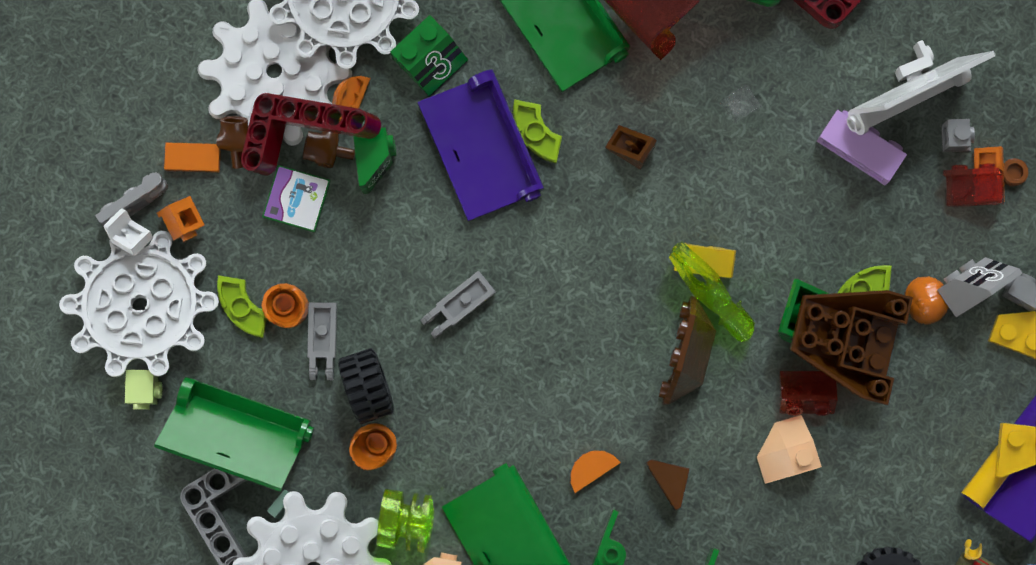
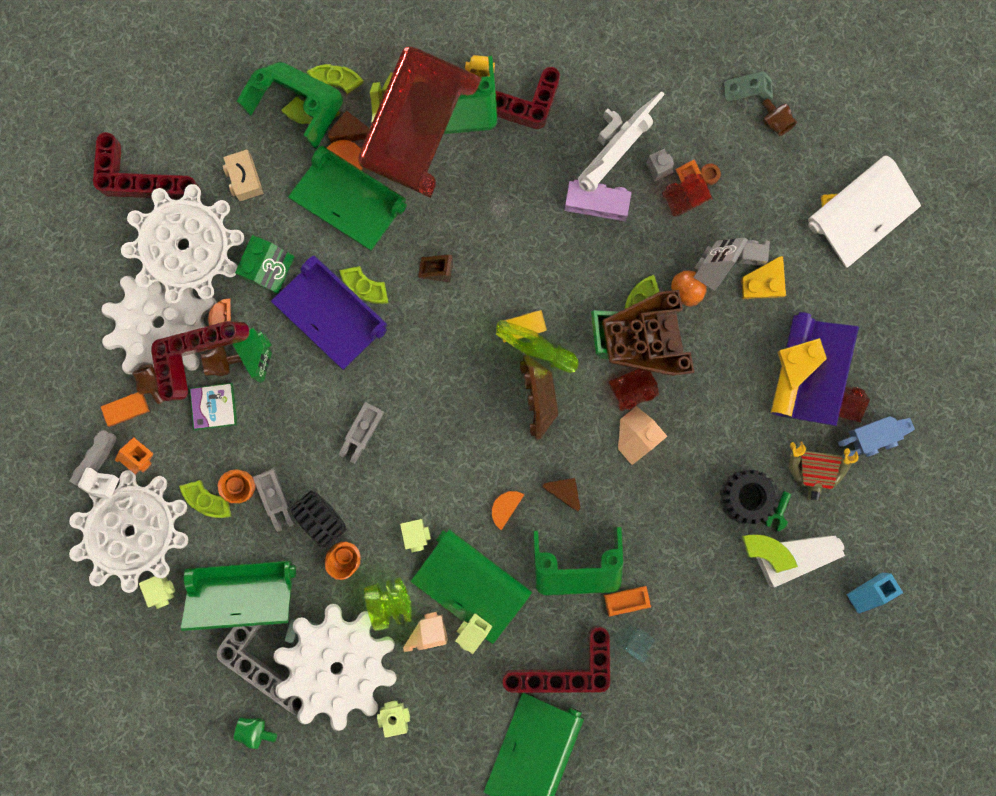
camera: 30 degrees left, 0 degrees up
(470, 454) = (415, 535): none -> yellowish green brick

